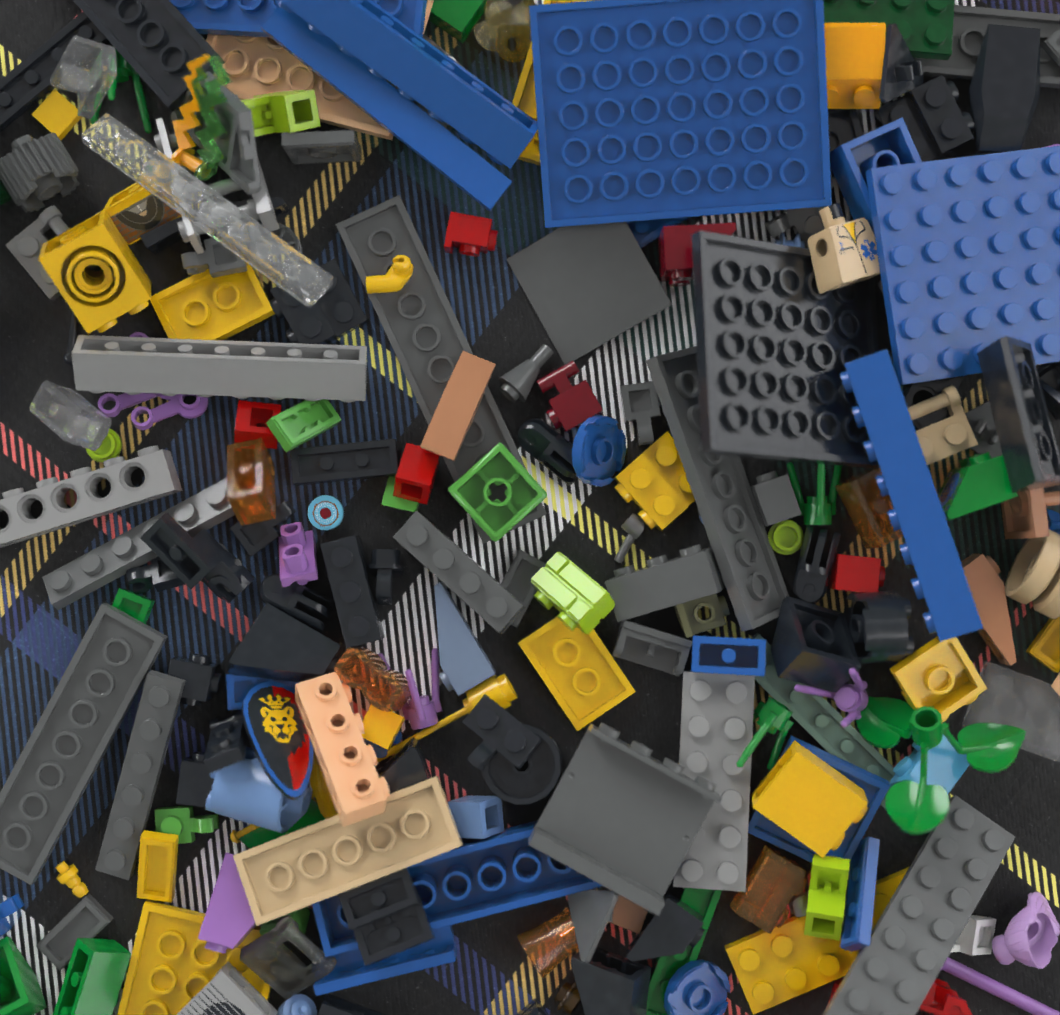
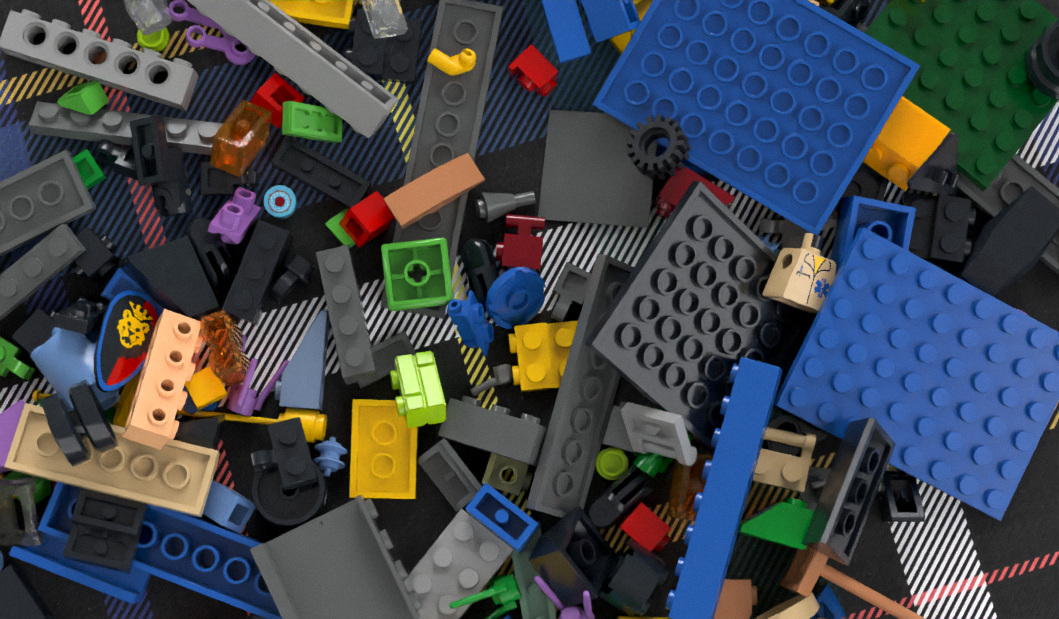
camera: 30 degrees right, 5 degrees down
(83, 544) = (84, 98): none -> bright green slope
(297, 843) = (73, 426): none -> black wheel
(533, 707) = (329, 456): none -> medium blue wheel
(576, 501) = (471, 322): none -> blue hinge
(616, 218) = (667, 161): none -> black tyre
(815, 483) = (658, 433): none -> light grey plate

